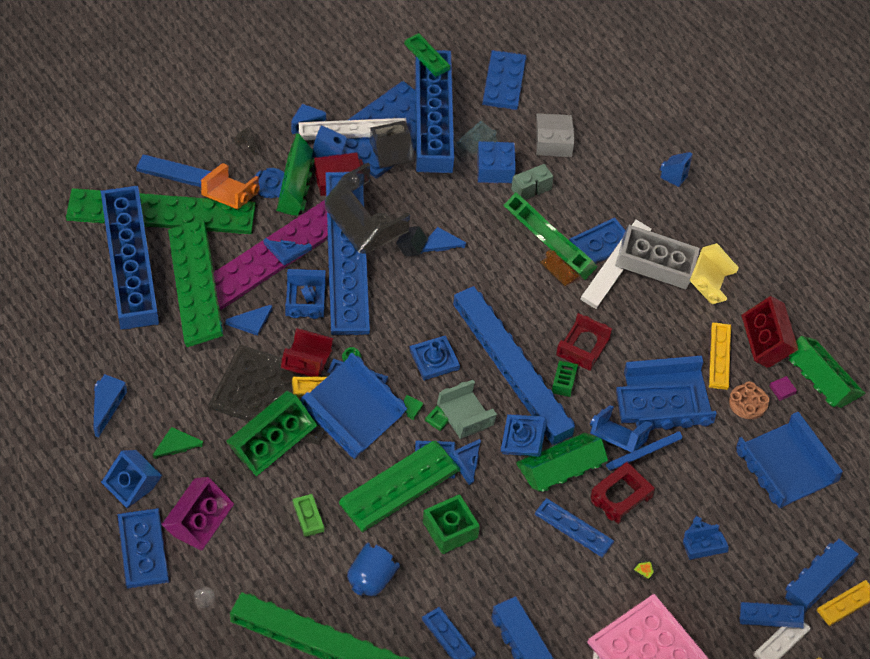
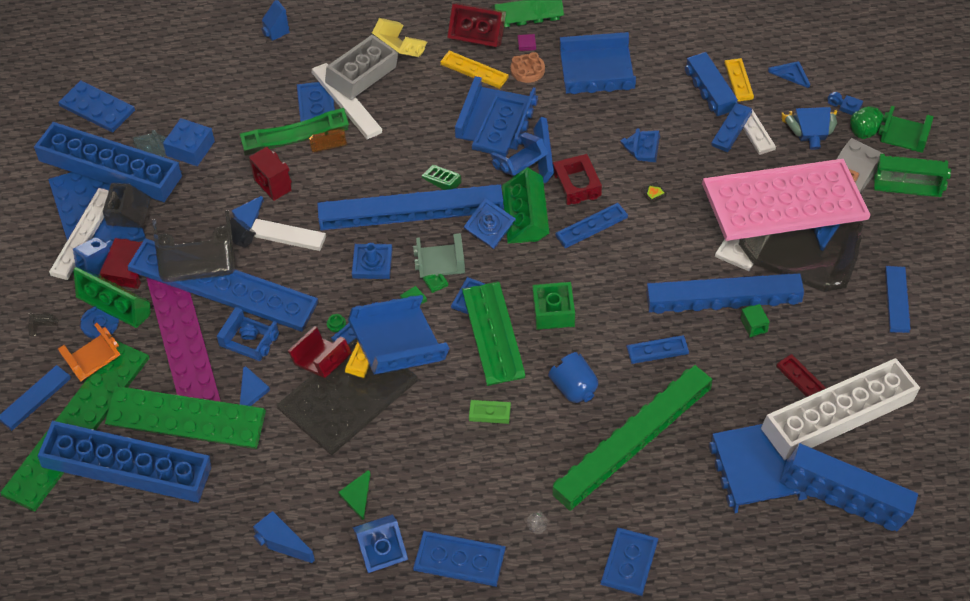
camera: 60 degrees left, 0 degrees up
(198, 513) = (445, 498): magenta slope -> none
(272, 433) = (392, 407): green slope -> none
(286, 250) = (191, 332): blue tile -> none
(306, 114) = (42, 264): blue slope -> none
(427, 55) = (47, 139): green tile -> none
(433, 281) = (288, 234): none -> white tile
(467, 459) = (490, 274): blue tile -> none
(488, 236) = (270, 173): none -> dark red brick
(525, 182) = (227, 124): sand green piece -> none
(554, 135) = (183, 91): light grey slope -> none
(578, 356) = (424, 161): dark red panel -> none

